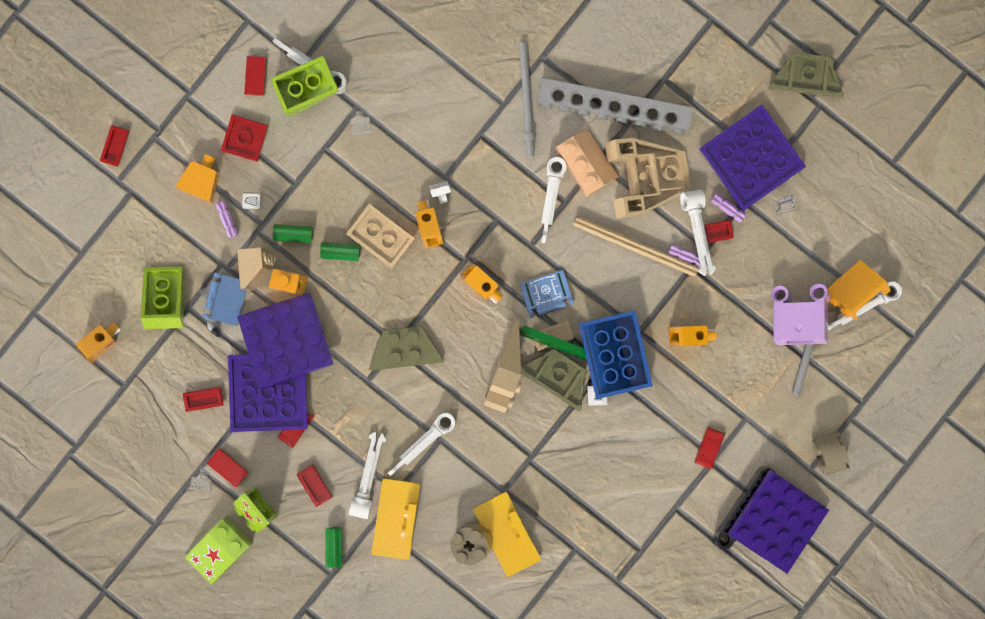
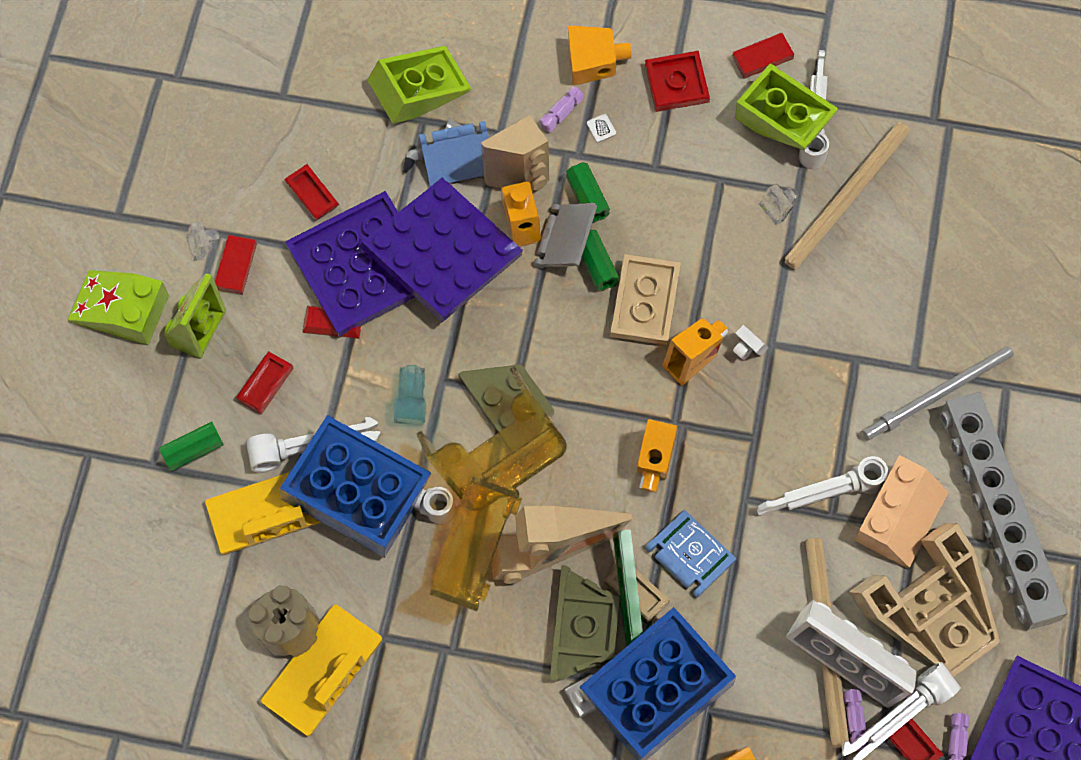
camera: 70 degrees right, 20 degrees down
(90, 343) = (321, 33): light orange torso -> none
(315, 262) = (565, 235): none -> light grey piece
(372, 406) = (410, 403): none -> clear light blue piece
(376, 78) = (846, 195): none -> tan axle
(412, 465) = (355, 485): none -> blue slope
(437, 372) = (509, 455): none -> clear yellow windscreen
(484, 419) = (473, 541): none -> clear yellow windscreen
(655, 238) = (852, 654): none -> white slope

